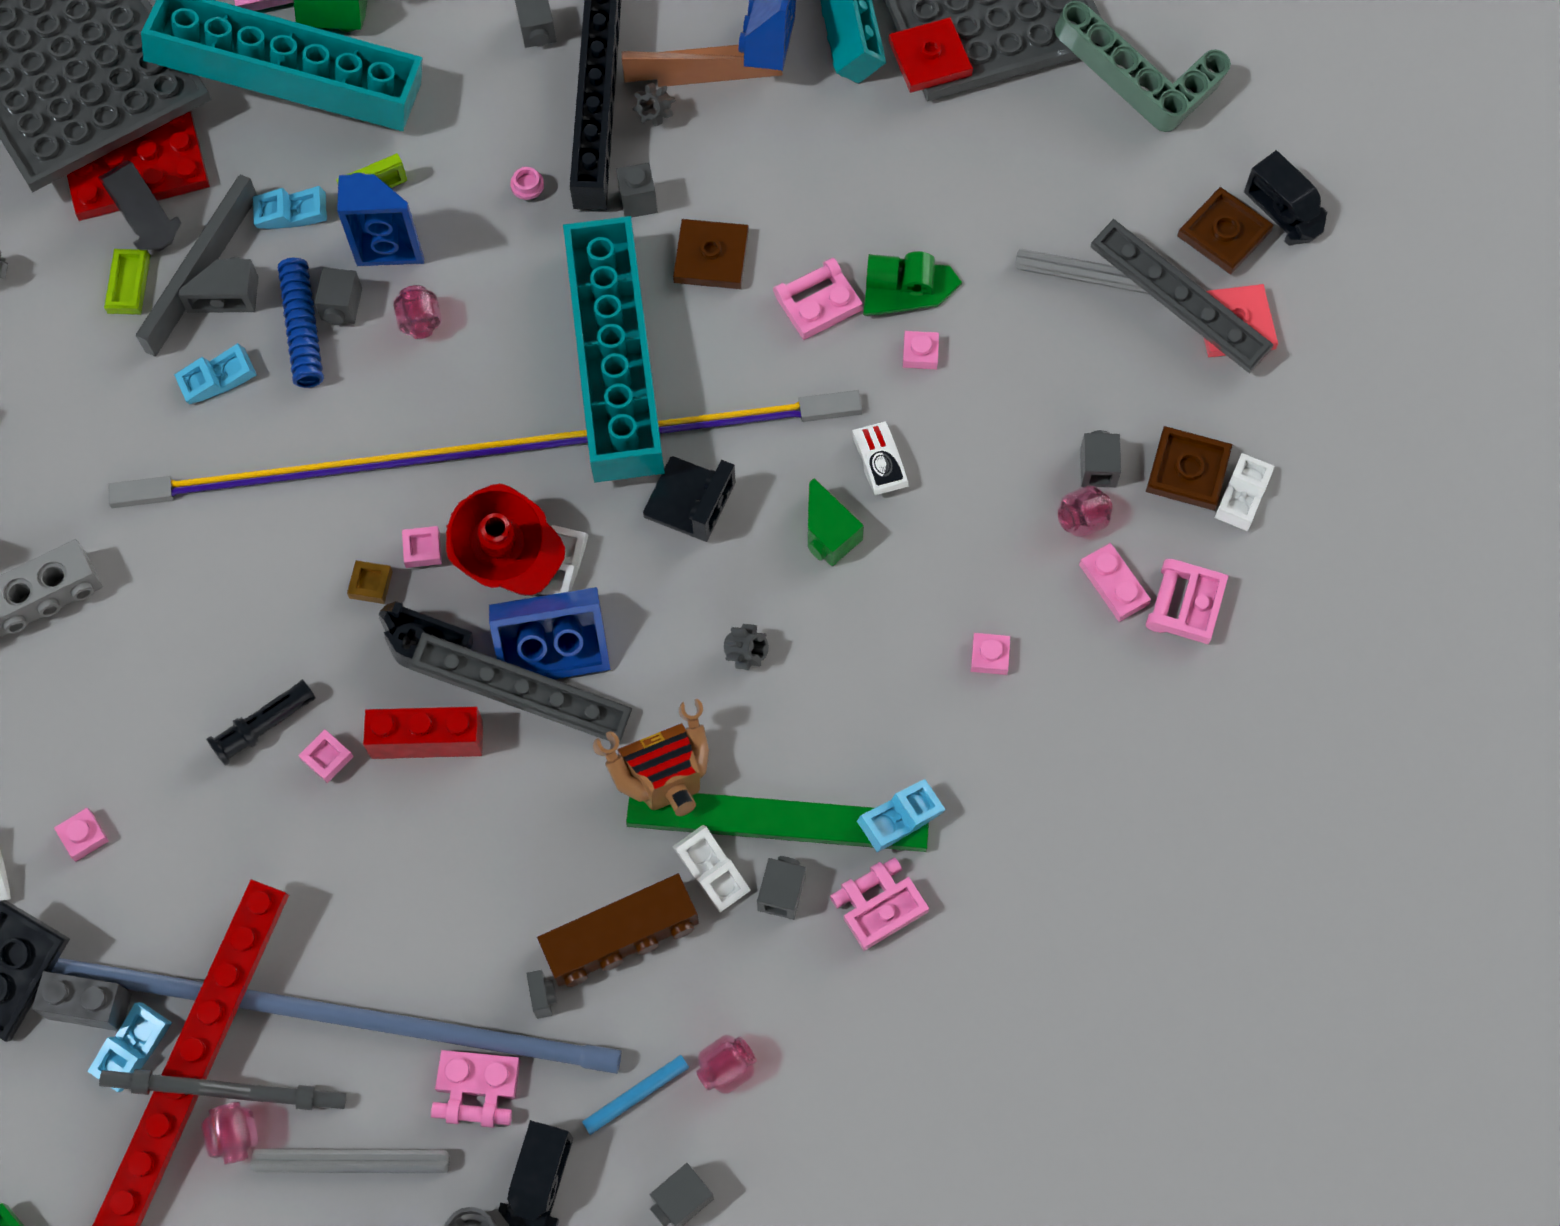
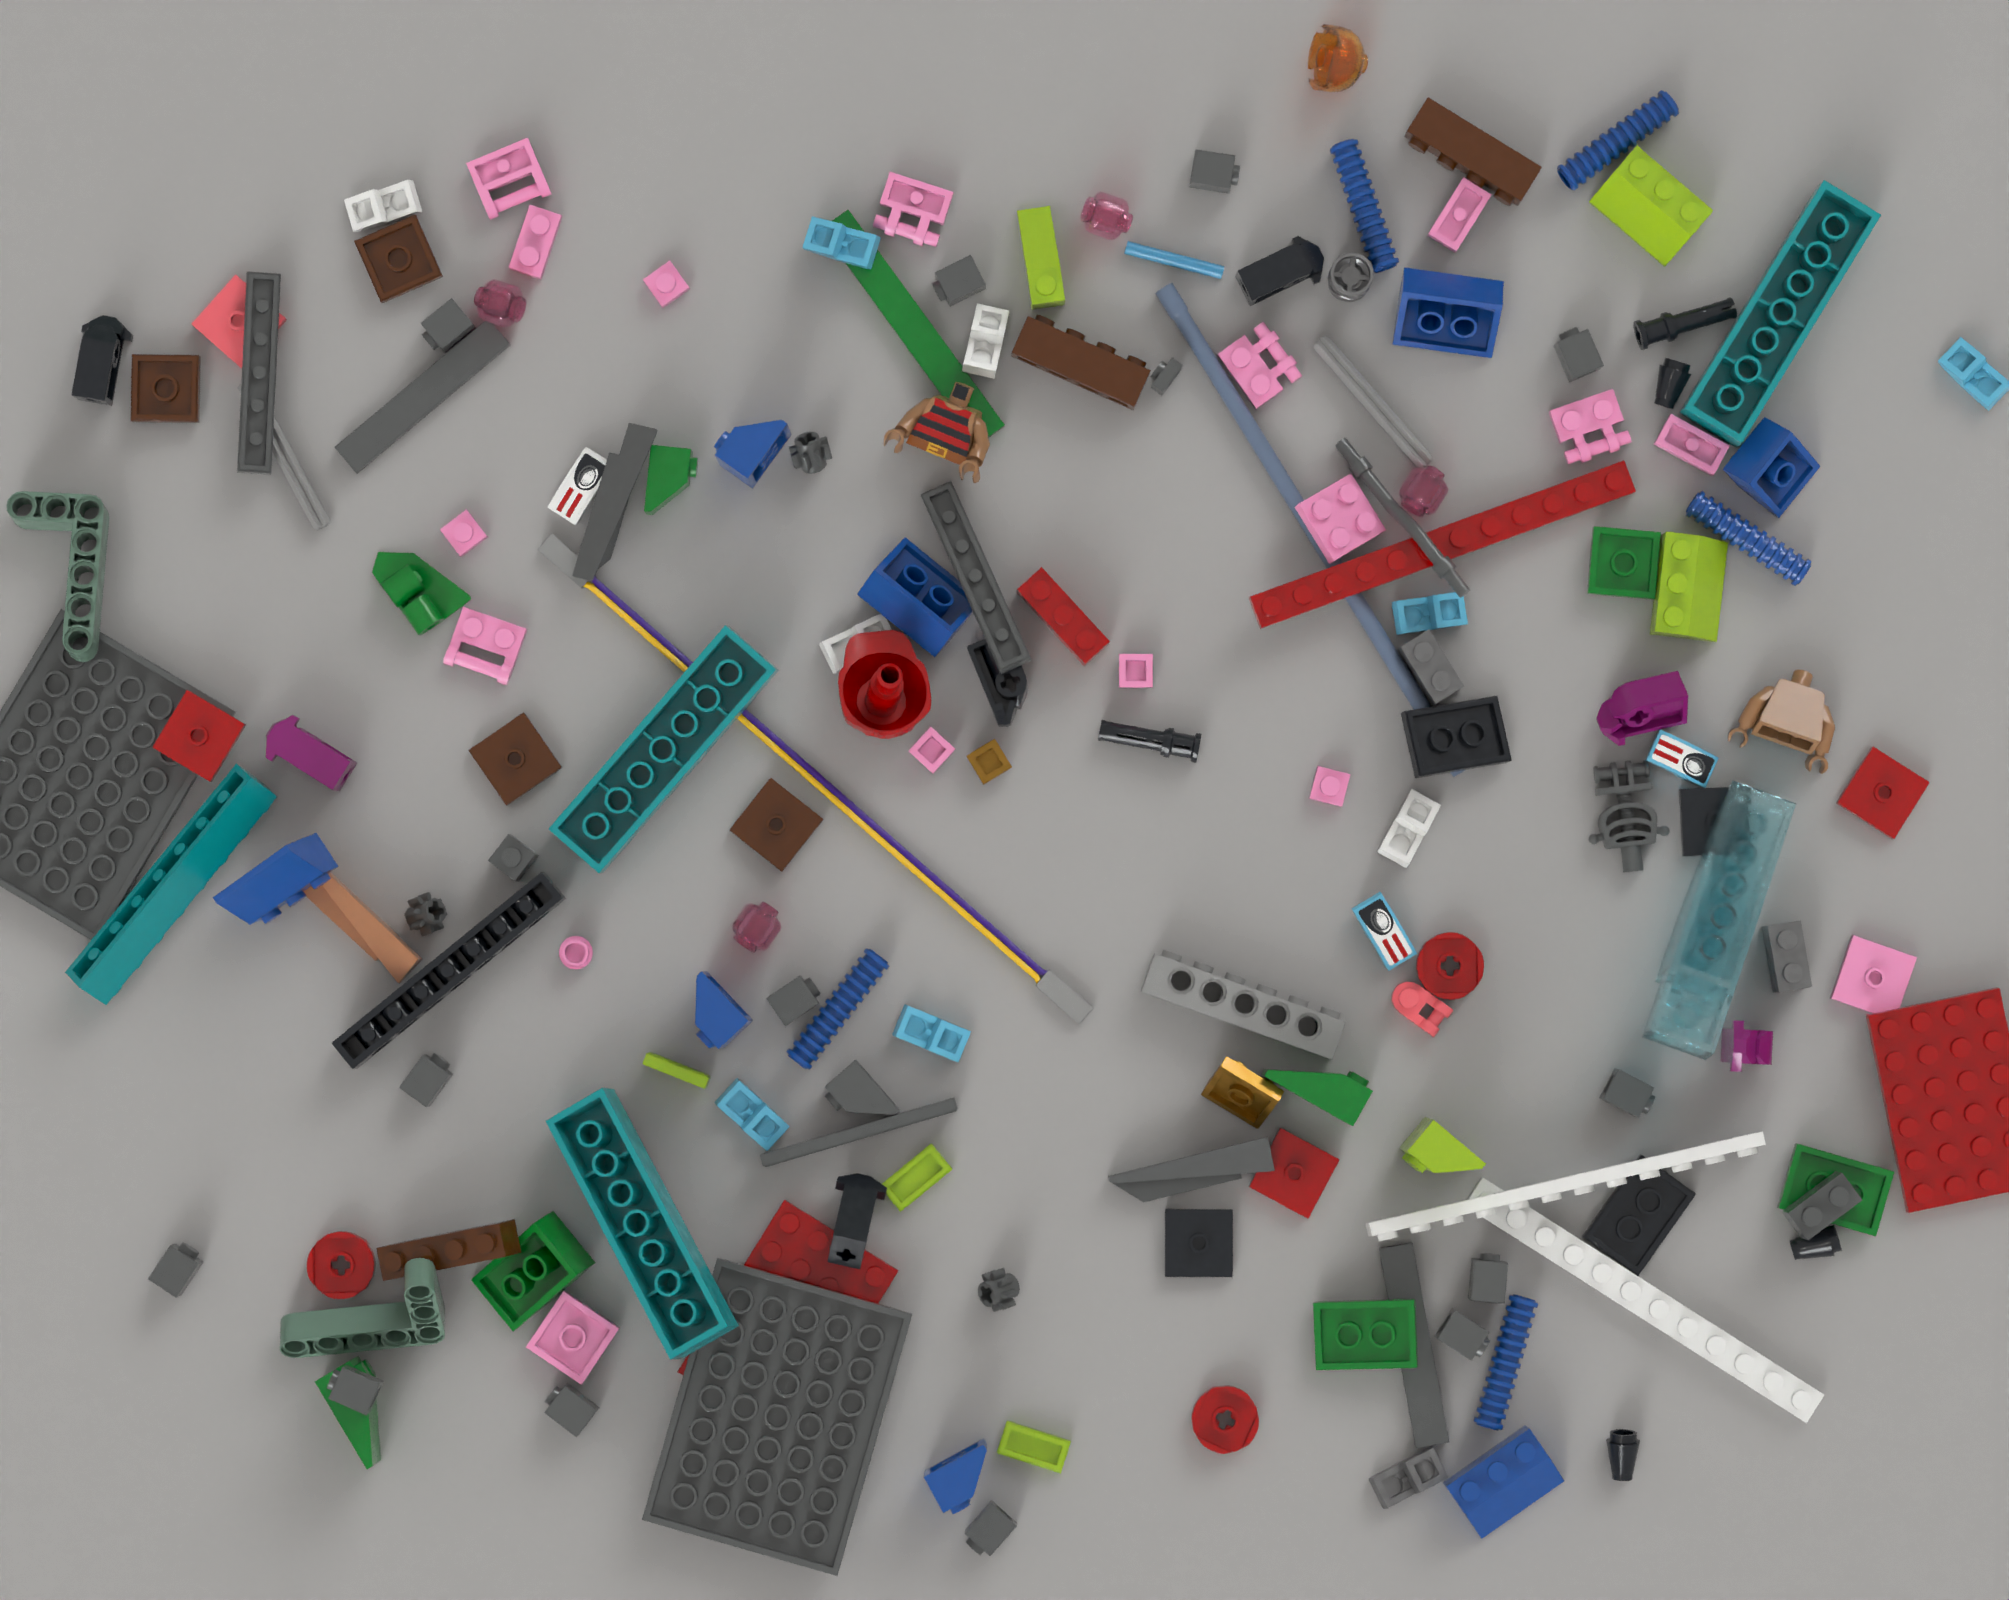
camera: 135 degrees left, 20 degrees up
(279, 1037) = (1340, 518): none -> bright pink plate
(480, 392) = (776, 824): none -> reddish brown plate
(690, 497) = (729, 594): black bracket -> none
(739, 975) = (1041, 258): none -> lime slope
(787, 585) = (751, 449): none -> blue slope
(844, 466) = (612, 499): none -> dark grey wedge
(846, 115) = (308, 753): none -> magenta piece
(1058, 403) = (422, 396): none -> dark grey tile

